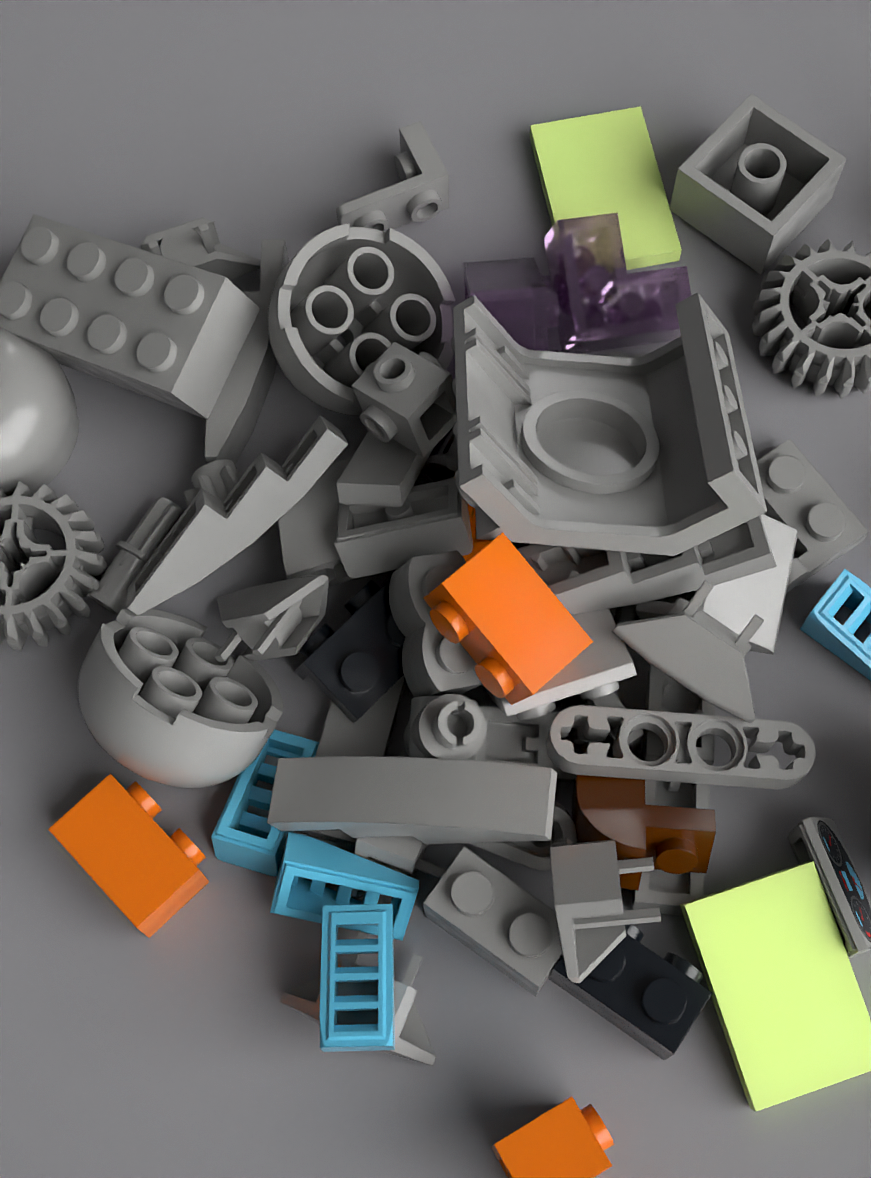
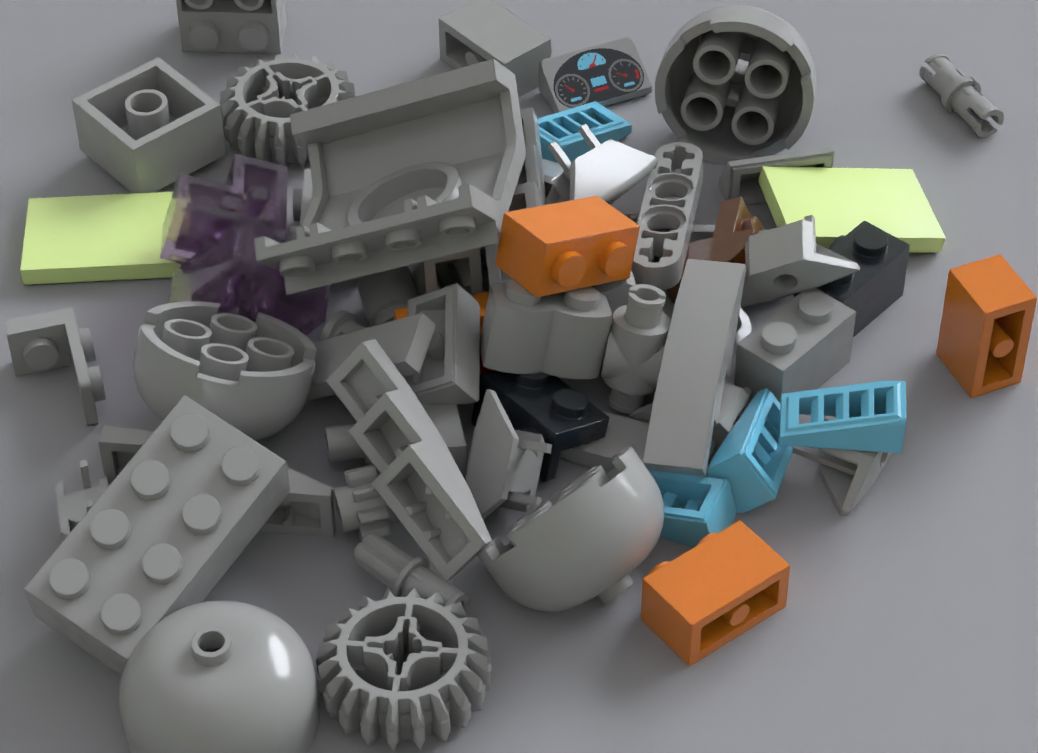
camera: 85 degrees left, 25 degrees down
(407, 399) = (331, 311): light grey brick -> none

